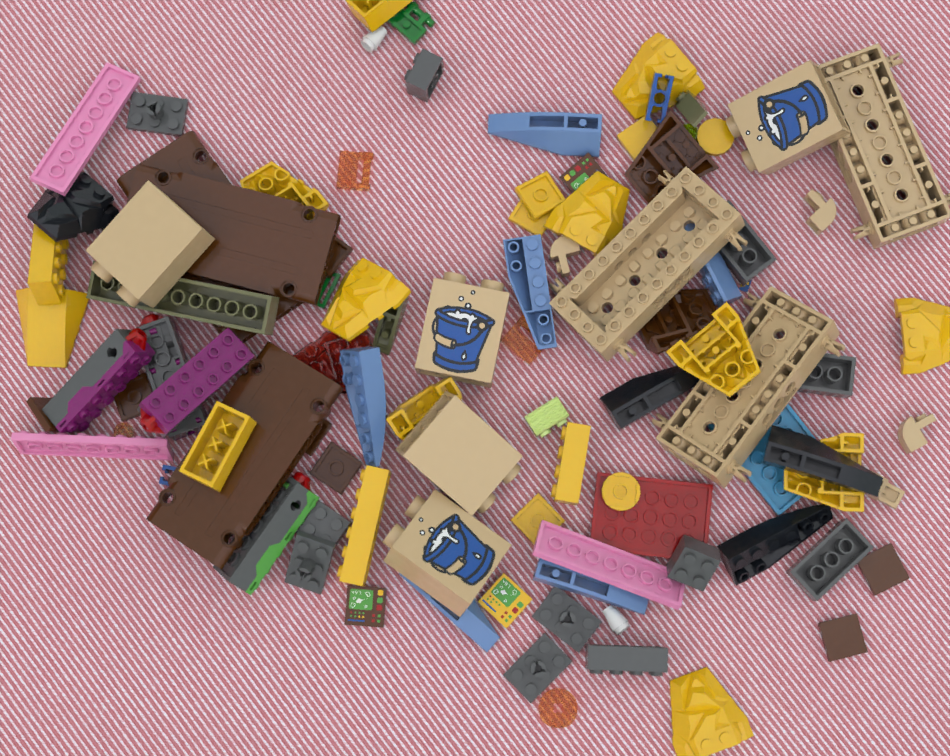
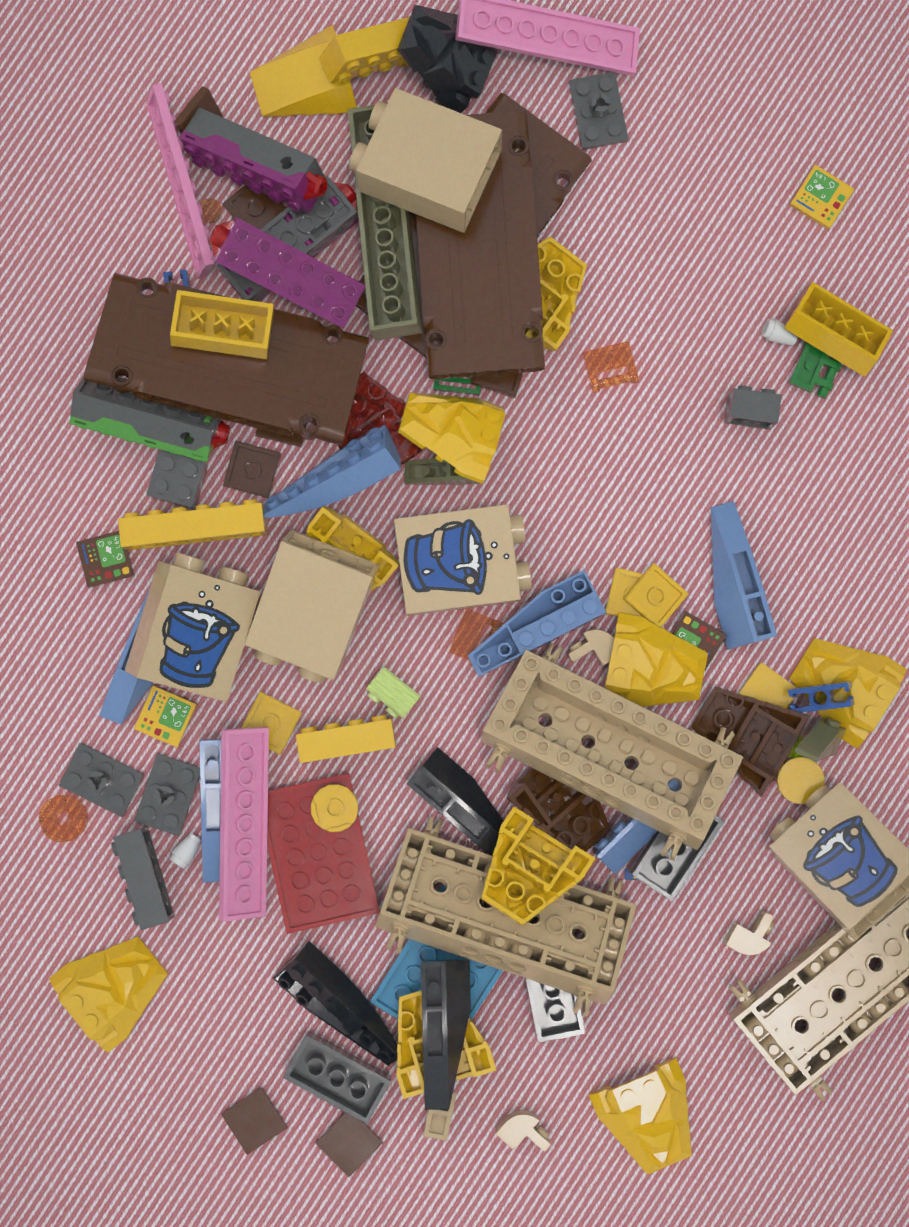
camera: 60 degrees right, 5 degrees up
(309, 562) = (131, 477): dark grey plate -> none
(693, 562) = (278, 919): dark grey brick -> none

